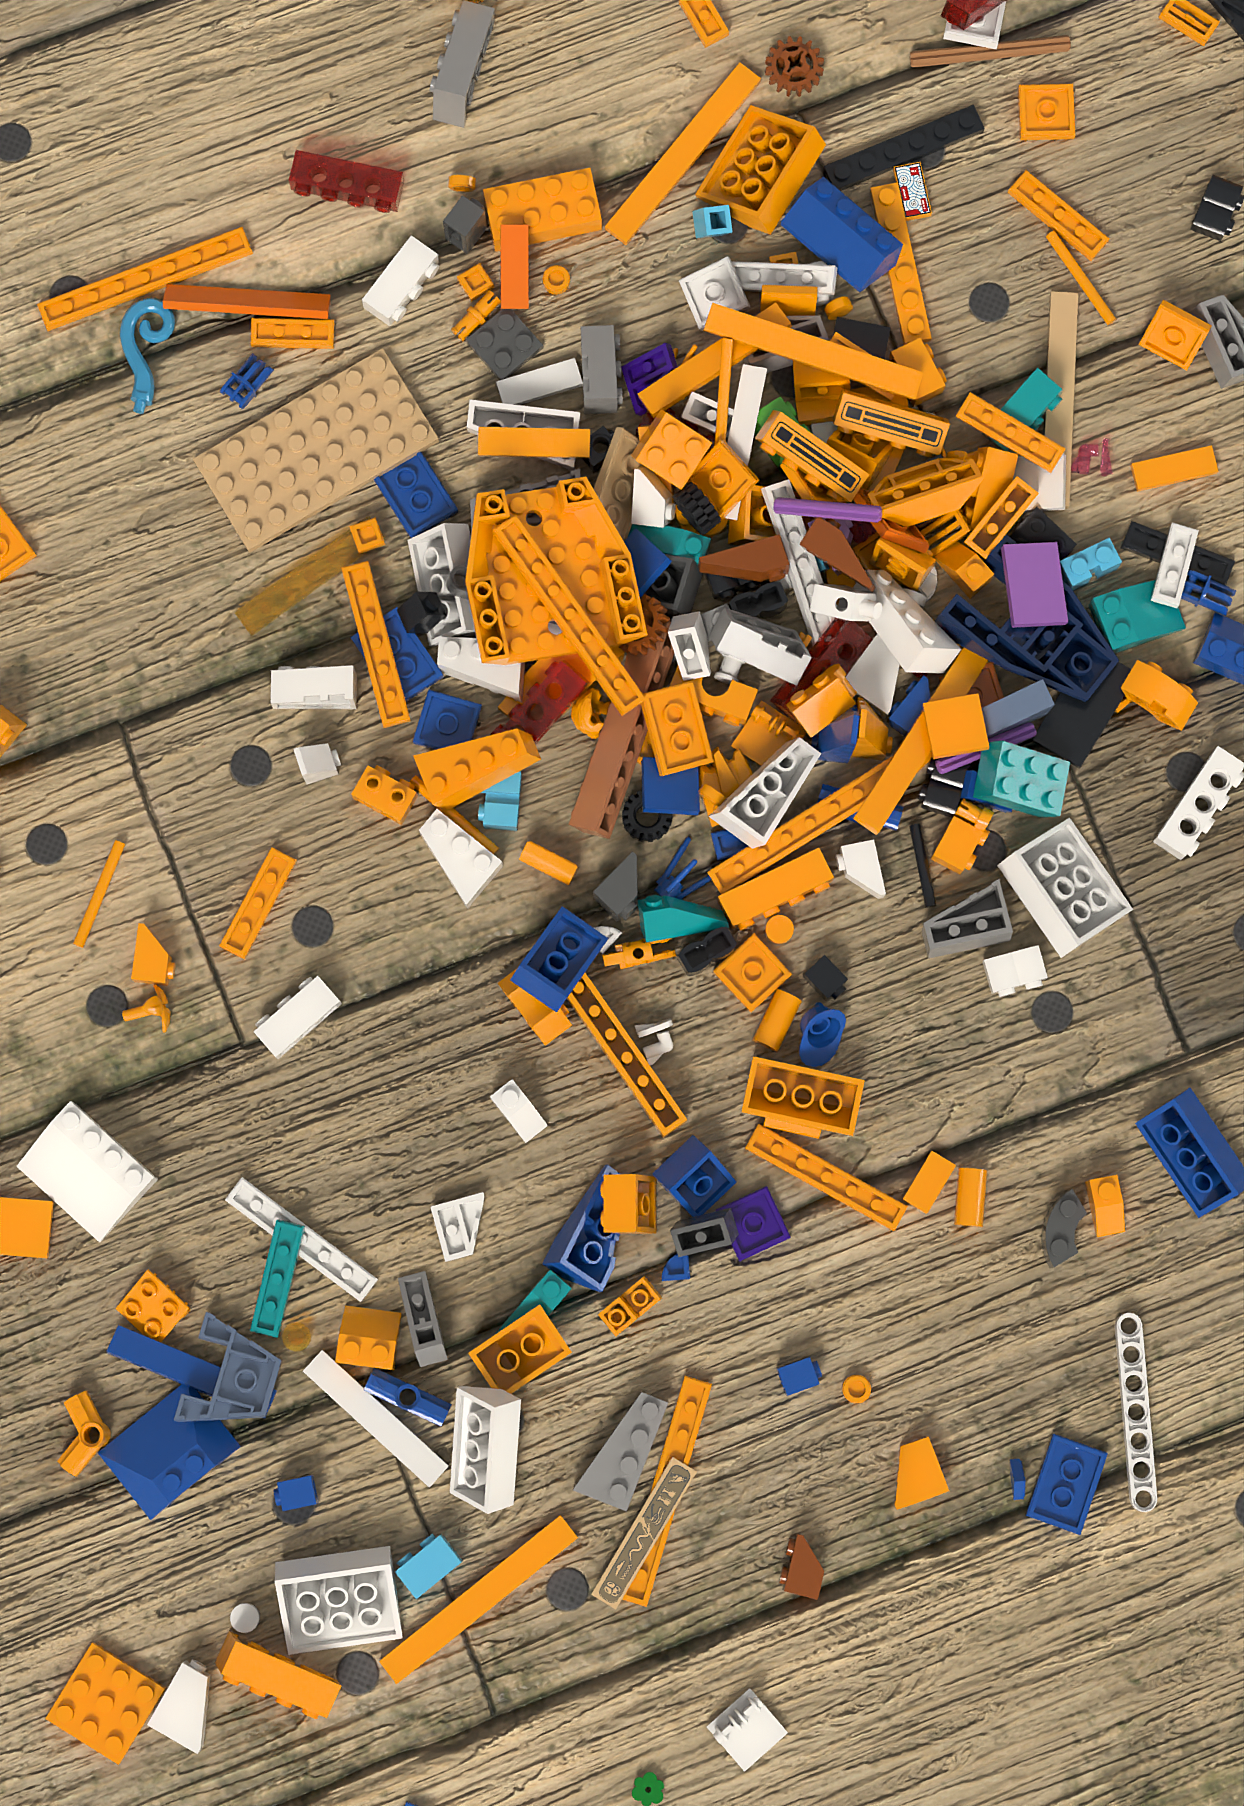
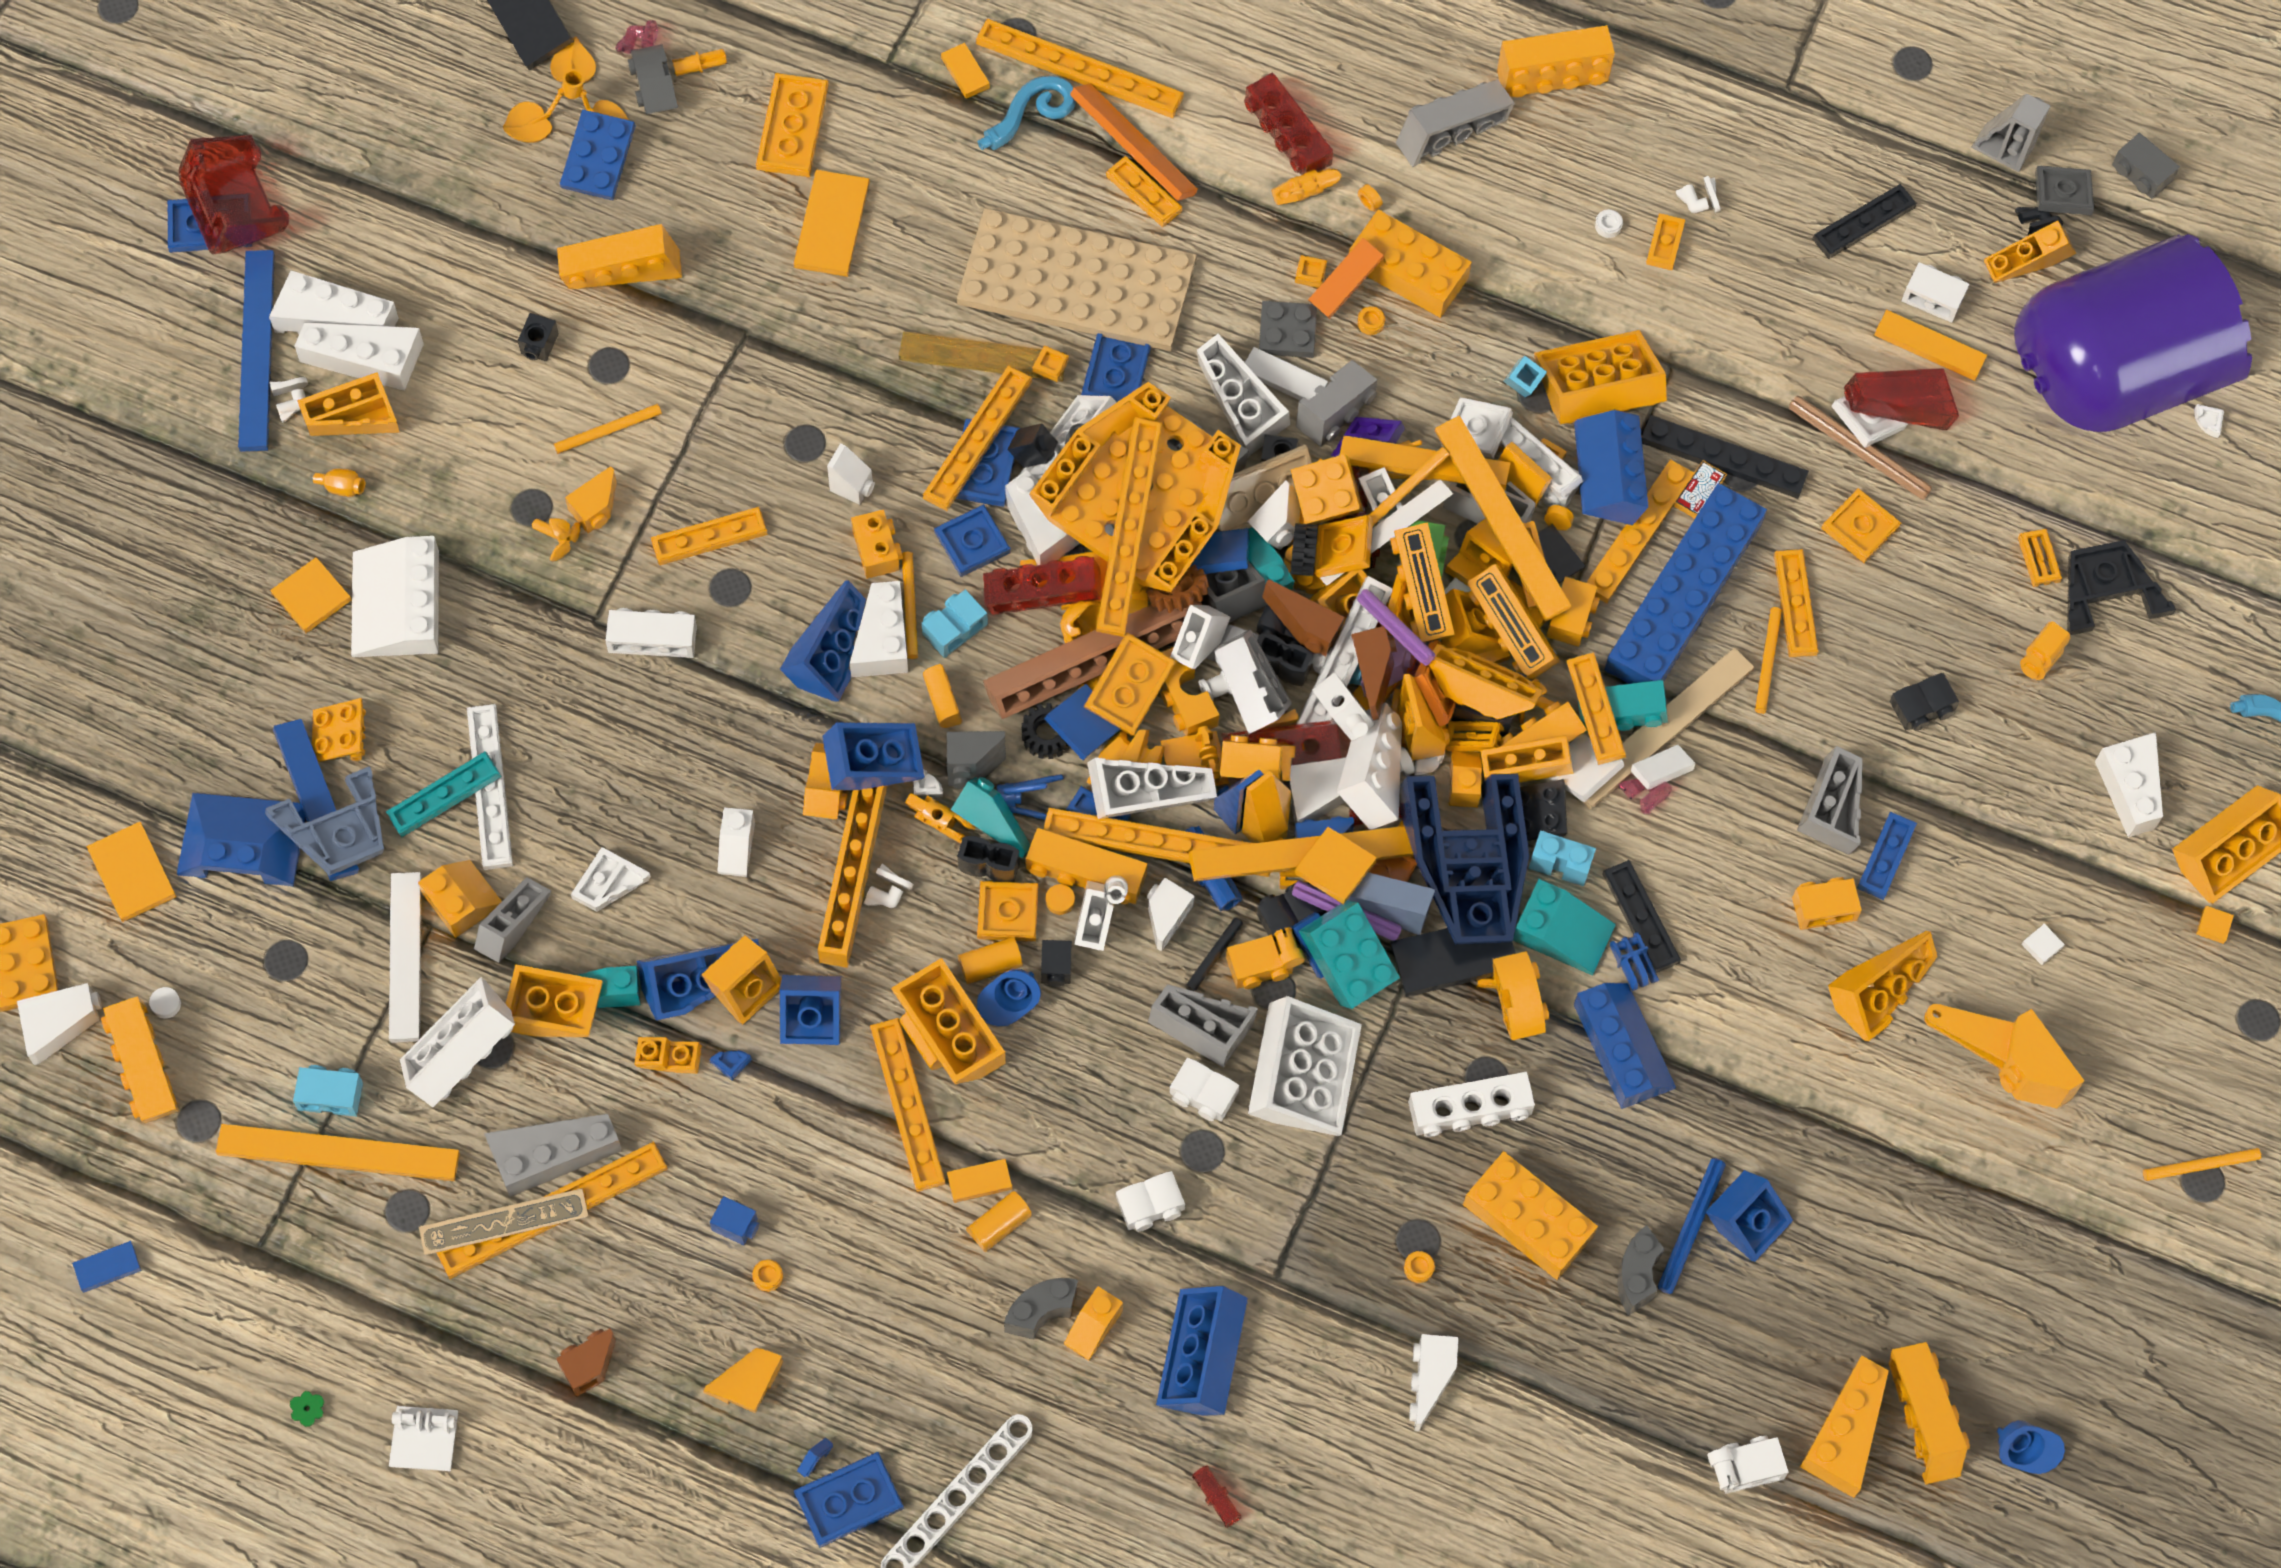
camera: 45 degrees right, 15 degrees down
(64, 361) = (965, 70): none -> light orange tile
(82, 1448) = (187, 777): light orange piece -> none
(92, 577) = (831, 223): none -> light orange tile
(117, 1551) = (131, 871): none -> light orange tile
(249, 378) = (1081, 190): blue arm -> none
(296, 1336) = (413, 847): clear yellow plate -> none
(296, 1493) = (294, 951): blue brick -> none
(314, 688) = (904, 429): white wedge -> none
(338, 1600) = (240, 1052): white slope -> none
(401, 281) = (1256, 222): white brick -> none
(406, 216) = (1304, 186): none -> light orange hinge
(425, 1405) = (438, 945): blue piece -> none
(432, 913) = (824, 650): none -> blue wedge
(465, 224) = (1341, 221): dark grey brick -> none
(475, 765) = (956, 575): light orange wedge -> none
(476, 315) = (1285, 291): light orange pin -> none
(534, 442) = (1233, 401): light orange tile -> none
(648, 40) = (1608, 223): none -> white tile
(682, 154) = (1554, 318): light orange tile -> none
(704, 1232) = (774, 1049): dark grey brick -> none
(711, 795) = (1105, 749): light orange tile -> none
(757, 1223) = (819, 1085): dark purple tile -> none
(785, 59) = (1695, 333): dark orange gear -> none
(822, 915) = (1097, 911): none -> white hinge
(978, 279) = (1686, 587): none -> blue brick
(1034, 584) = (1501, 825): medium lavender tile -> none
(1058, 1084) = (1150, 1201): none -> white brick
(1090, 430) = (1663, 767): none -> white tile
(1174, 468) = (1702, 854): light orange tile -> none
(1174, 565) = (1628, 917): white tile -> none
(1175, 335) = (1797, 756): light orange tile -> none

